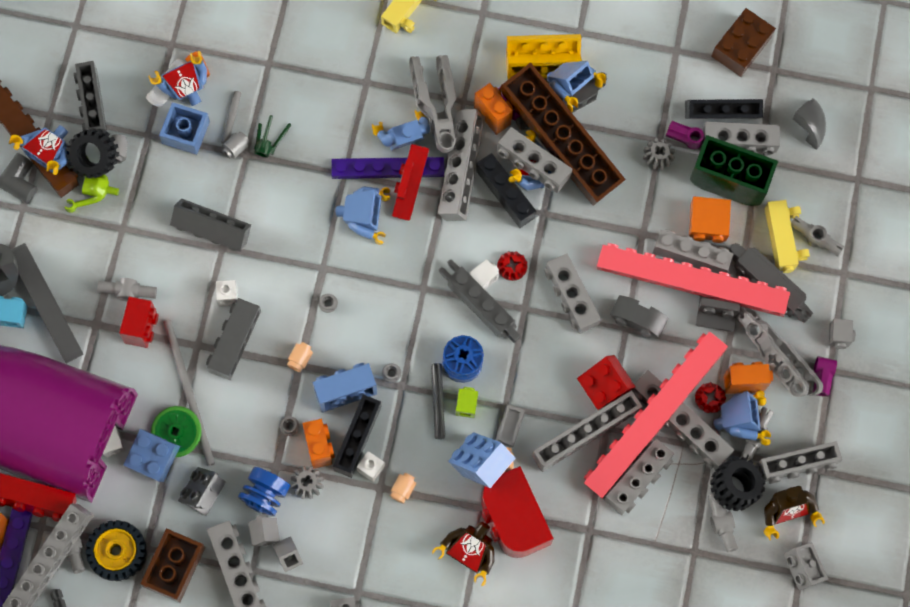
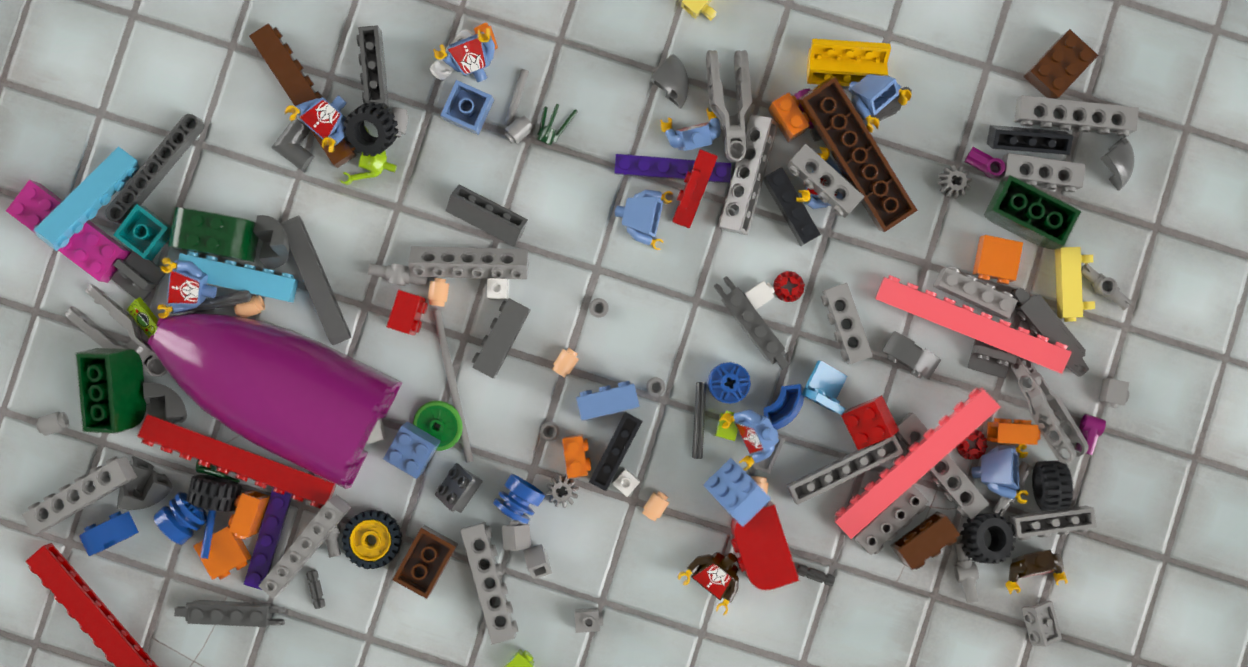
camera: 10 degrees right, 15 degrees up
(168, 302) = (438, 292): none -> light nougat brick
(195, 270) = (468, 262): none -> light grey brick
(380, 86) = (673, 80): none -> dark grey brick
(495, 402) = (756, 433): none -> medium blue torso
(521, 377) = (786, 407): none -> blue brick
(558, 354) = (825, 387): none -> dark azure bracket
(571, 541) = (815, 575): none -> dark grey axle
(676, 492) = (925, 540): none -> reddish brown brick
(772, 78) = (1125, 115): none -> light grey brick
(793, 424) = (1052, 485): none -> black tyre

